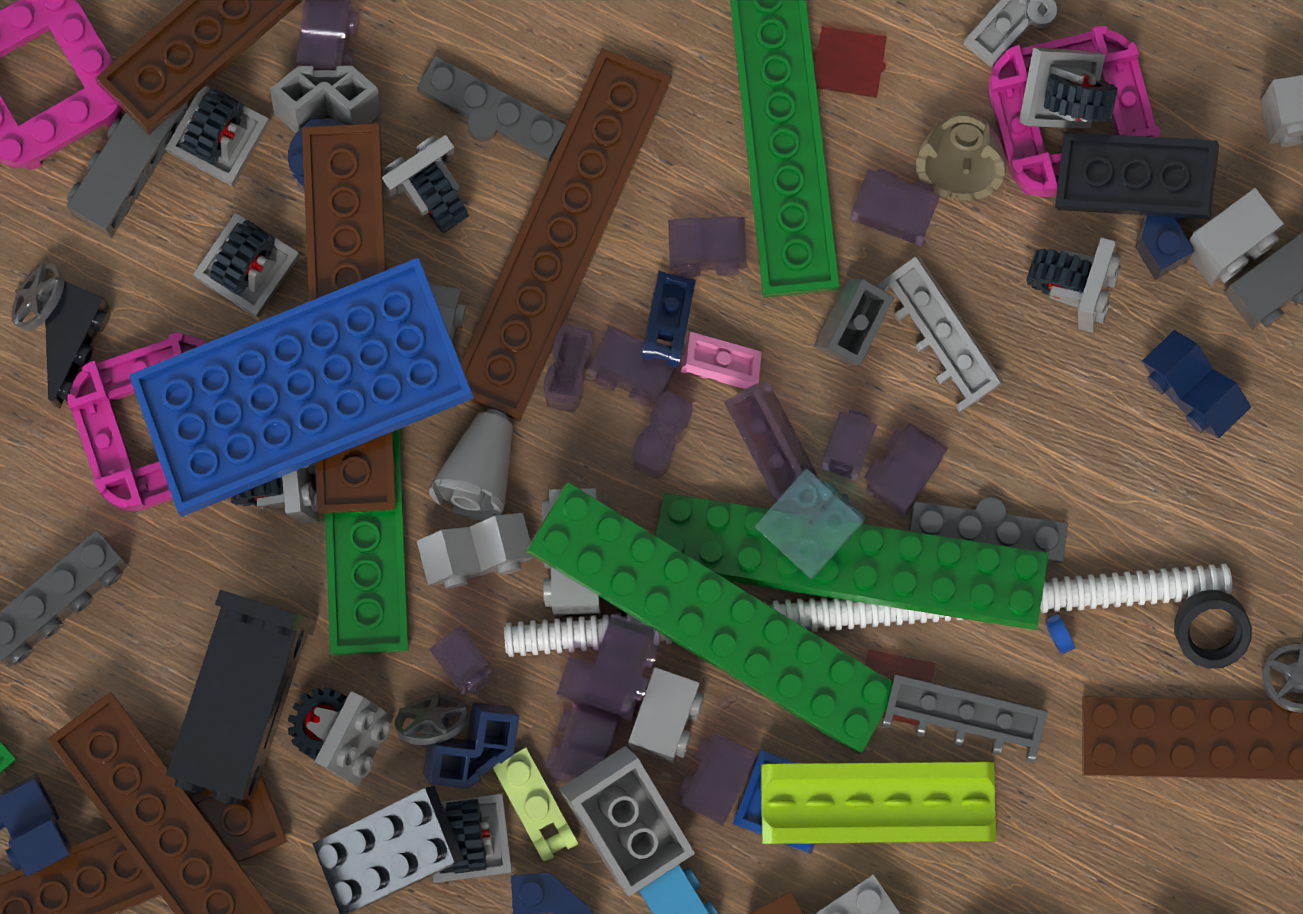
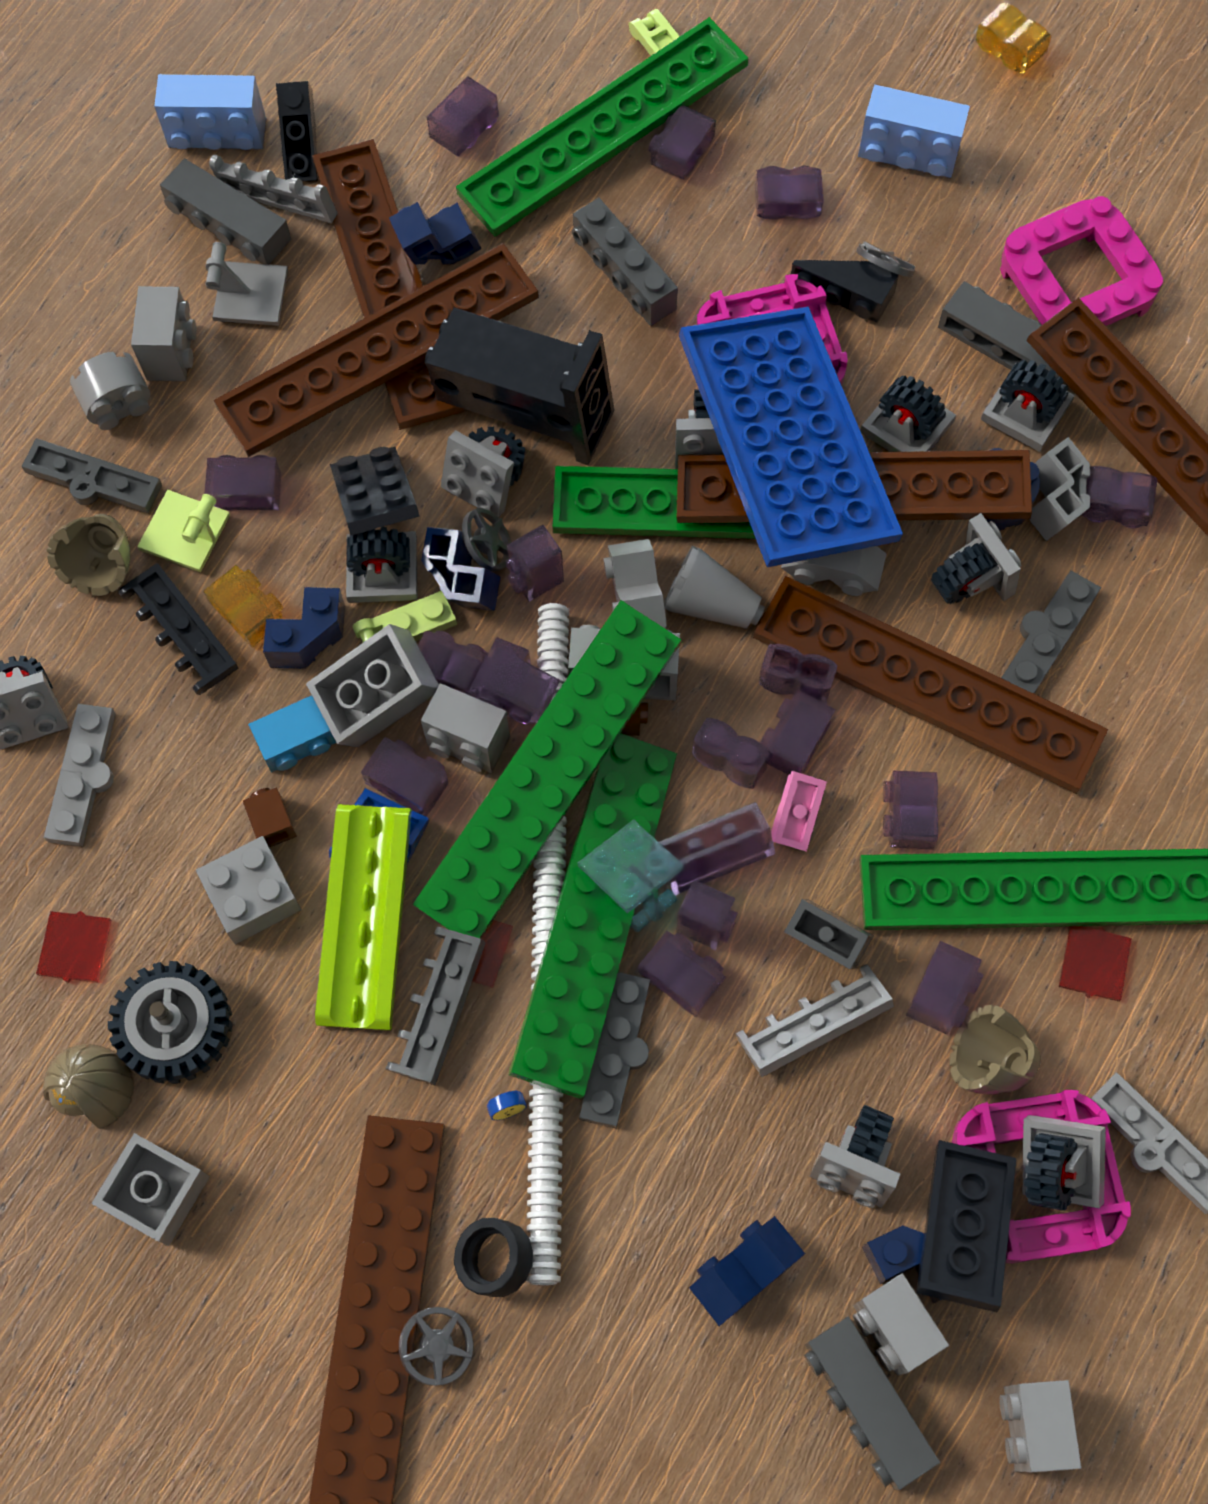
camera: 95 degrees right, 10 degrees down
(668, 318) = (840, 763): dark blue plate -> none

